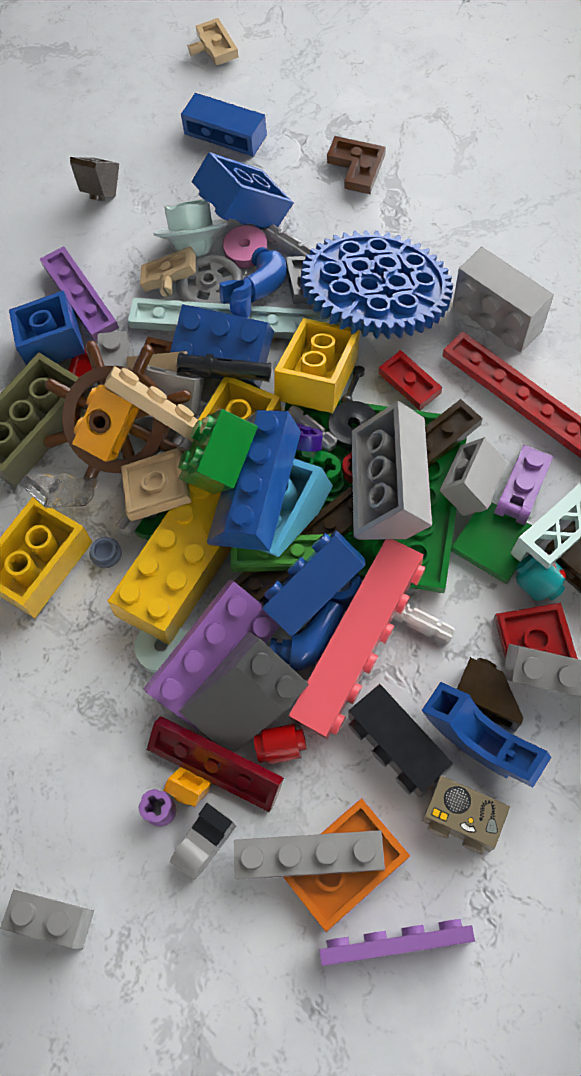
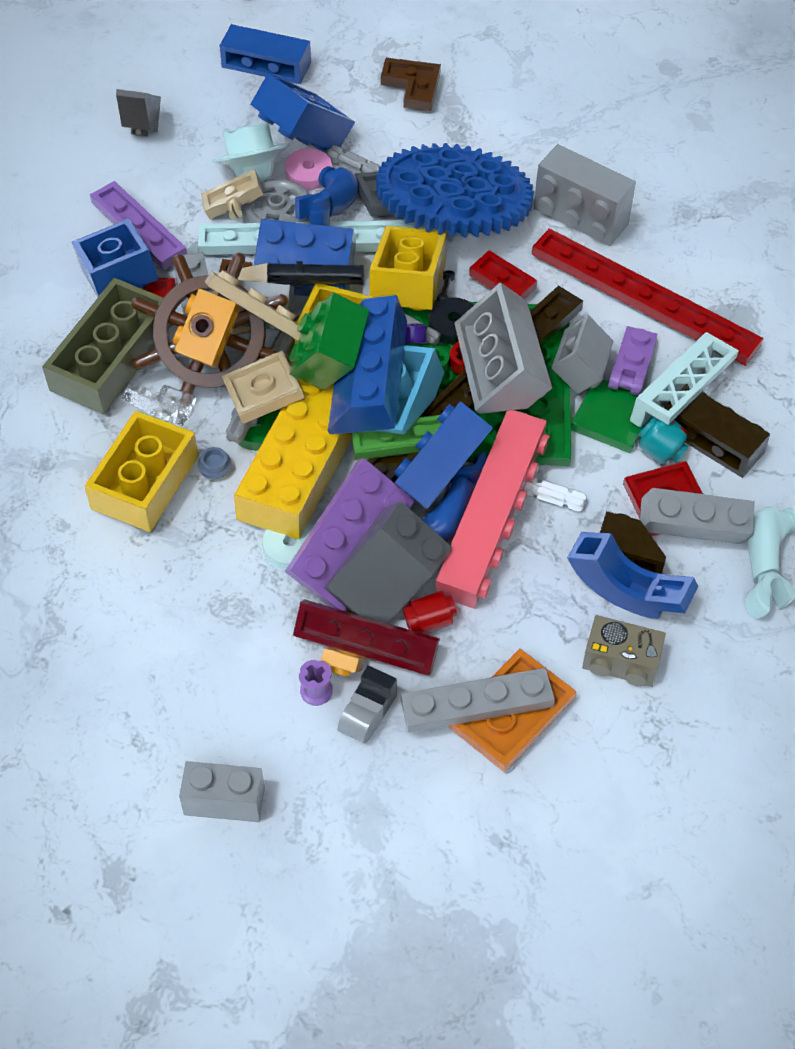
camera: 15 degrees left, 10 degrees down
(398, 741) = (547, 595): black brick -> none
(412, 939) = (577, 769): medium lavender plate -> none

